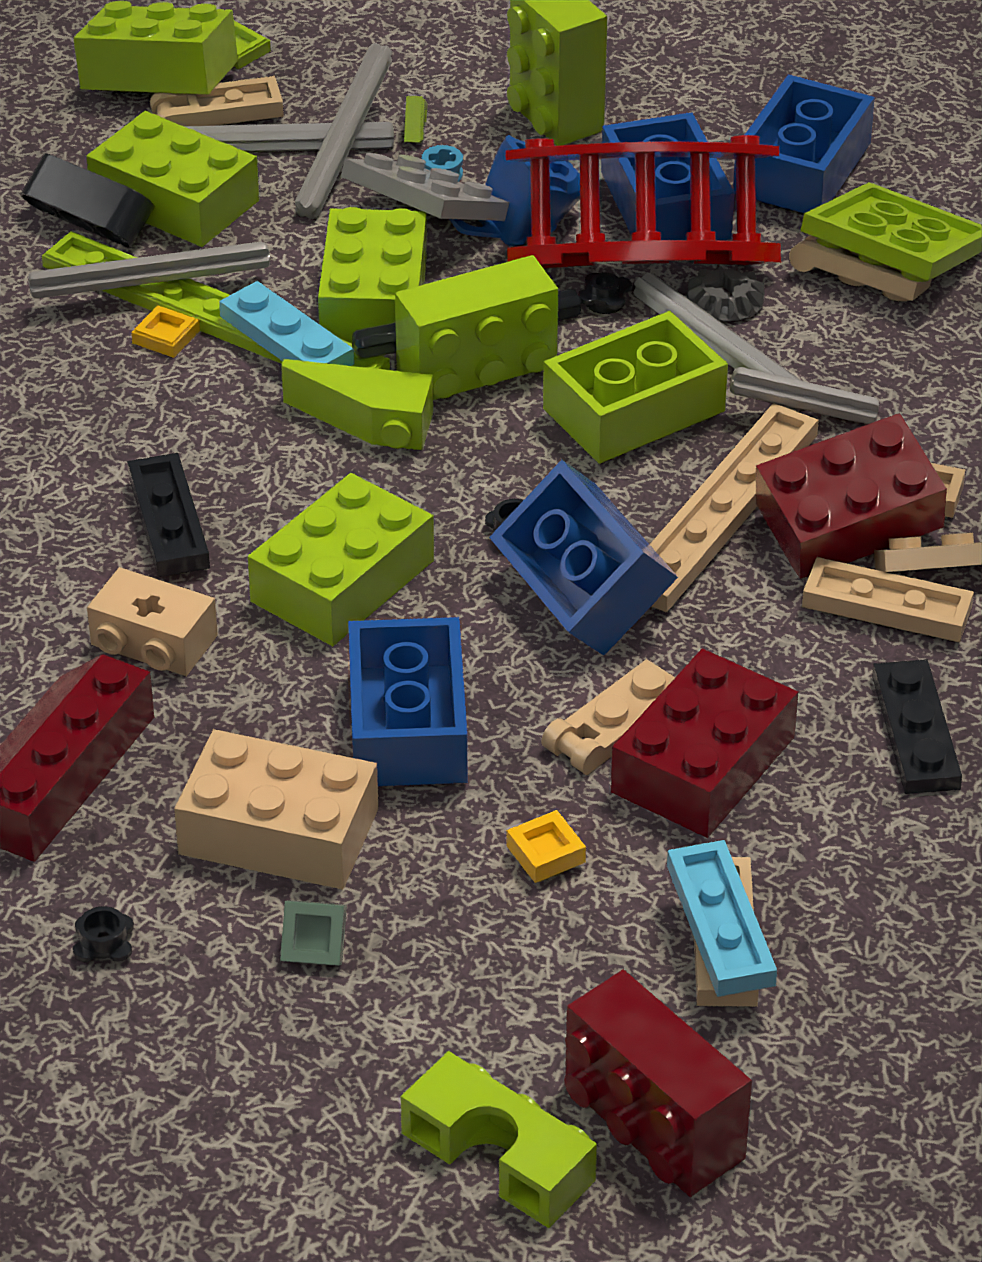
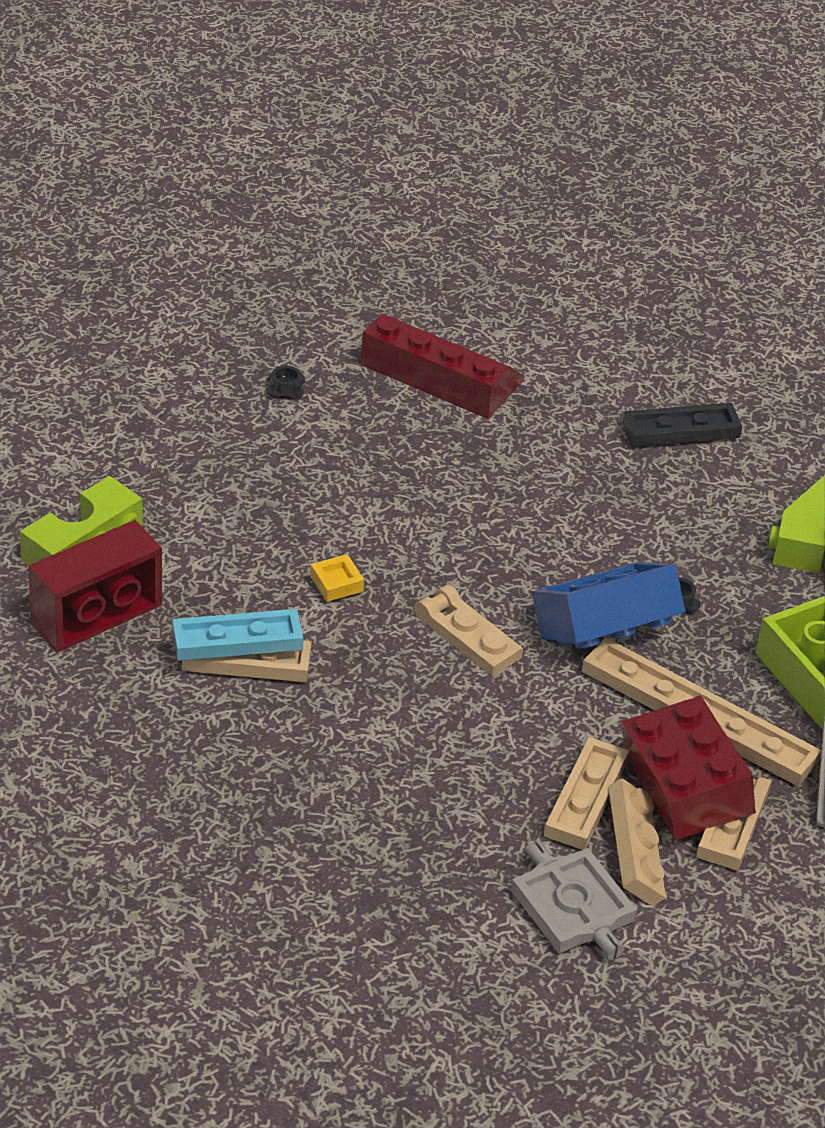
camera: 90 degrees right, 0 degrees up
(152, 621) = (564, 408): tan brick -> none
(277, 809) = (377, 452): tan brick -> none
(313, 932) = (269, 464): sand green plate -> none
(341, 558) = (626, 496): lime brick -> none
(409, 700) = (470, 511): blue brick -> none
(704, 742) = (424, 660): dark red brick -> none
(916, 727) = (449, 794): black plate -> none

